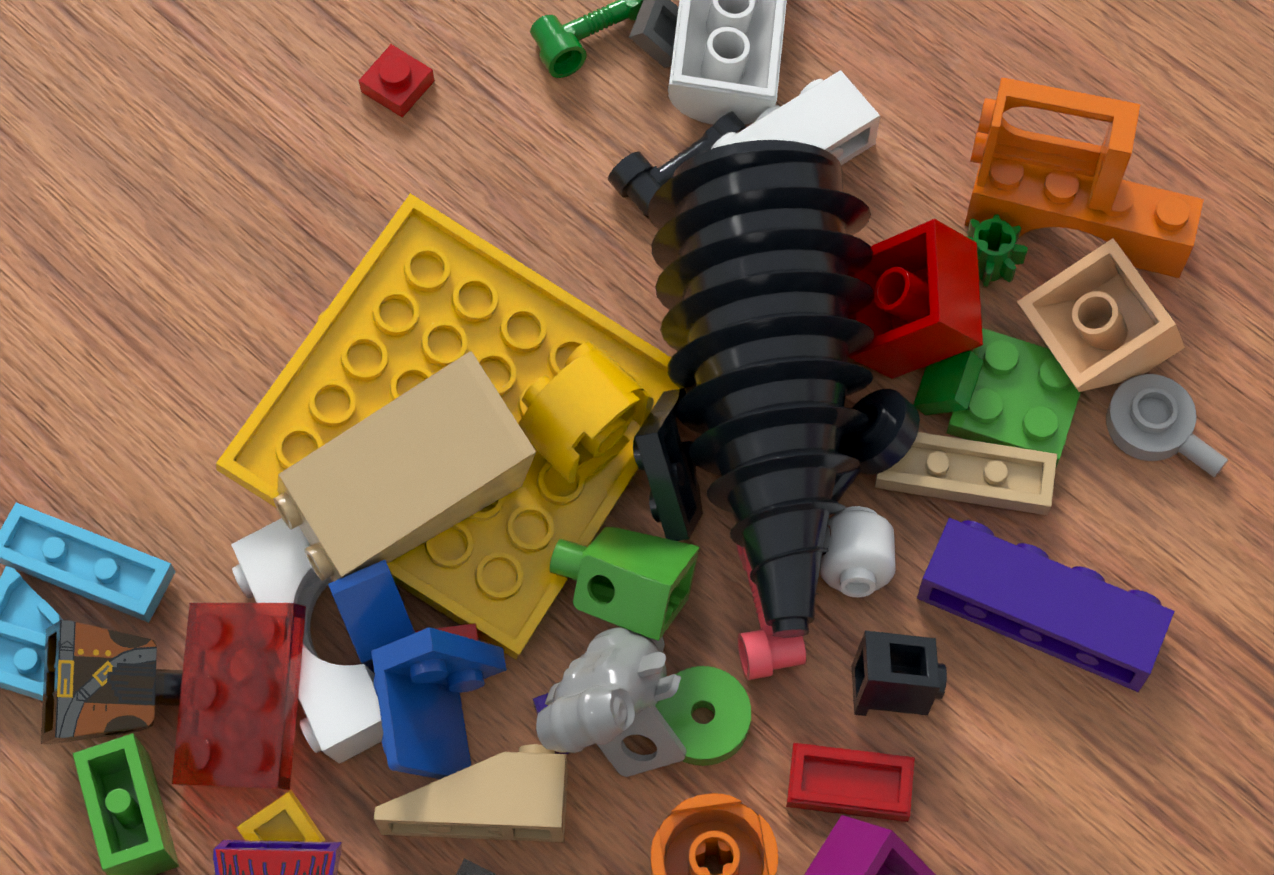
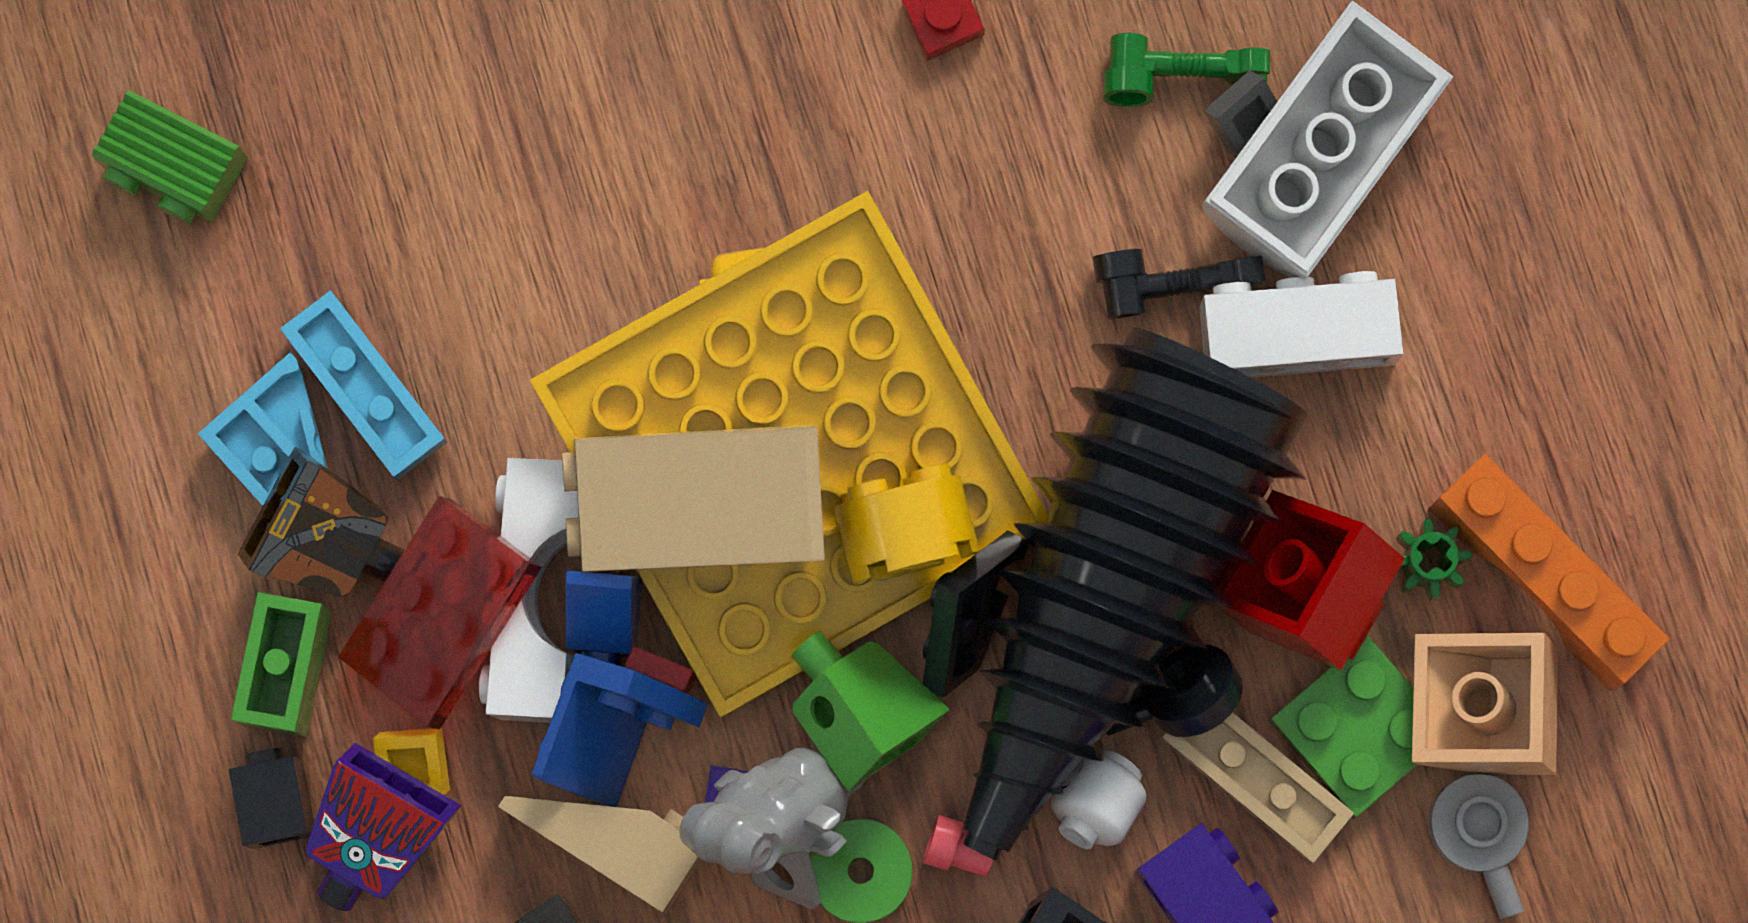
camera: 30 degrees right, 15 degrees up
(948, 384) = (1294, 680): green tile -> none
(1103, 163) = (1549, 502): orange panel -> none

